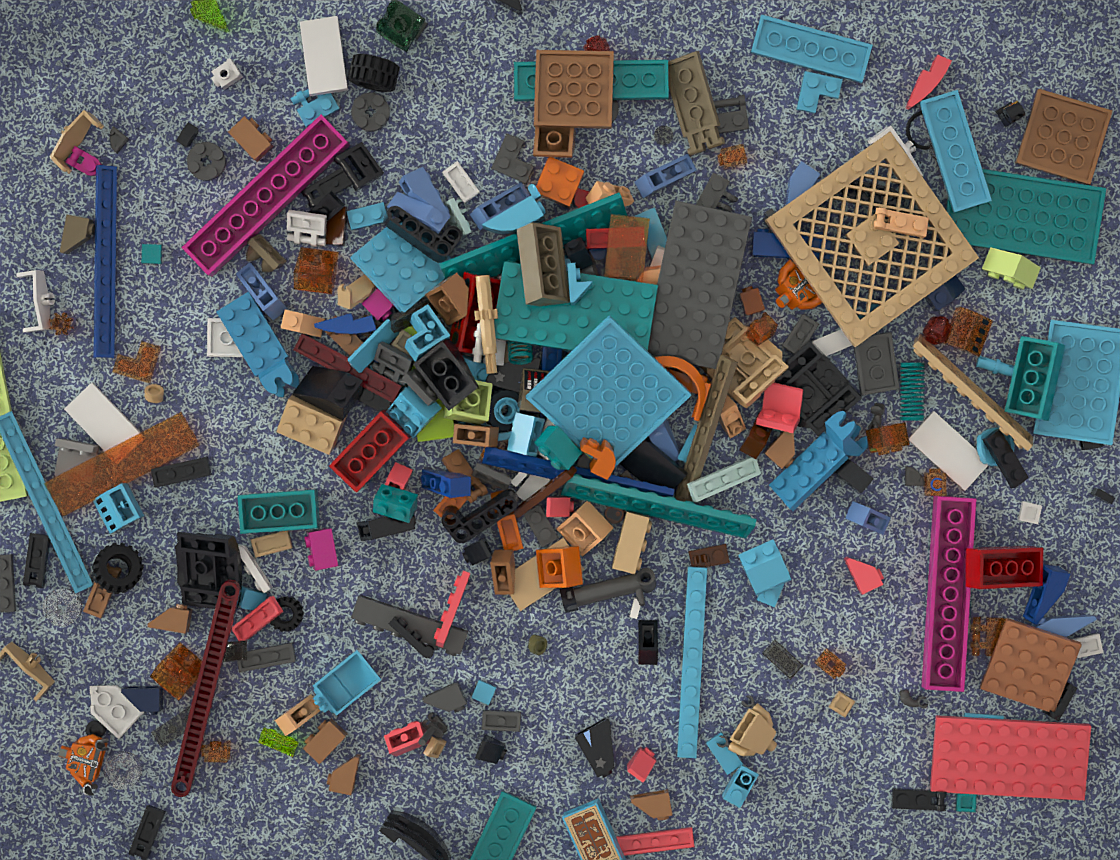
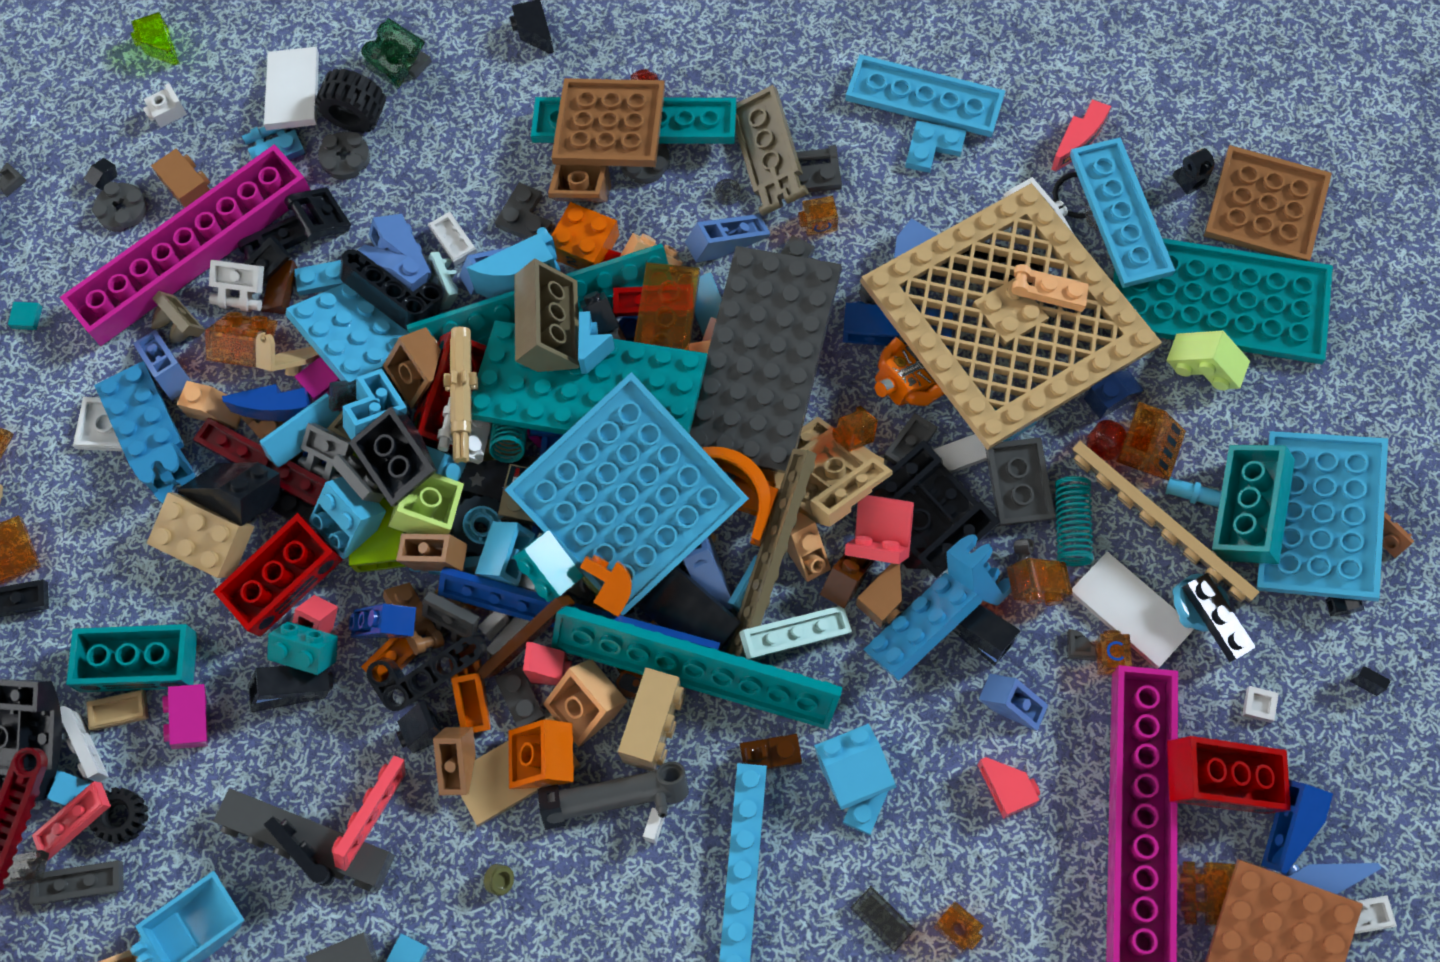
camera: 10 degrees right, 20 degrees down
(647, 642) = (670, 882): black slope -> none
(751, 301) = (841, 395): dark orange brick -> none

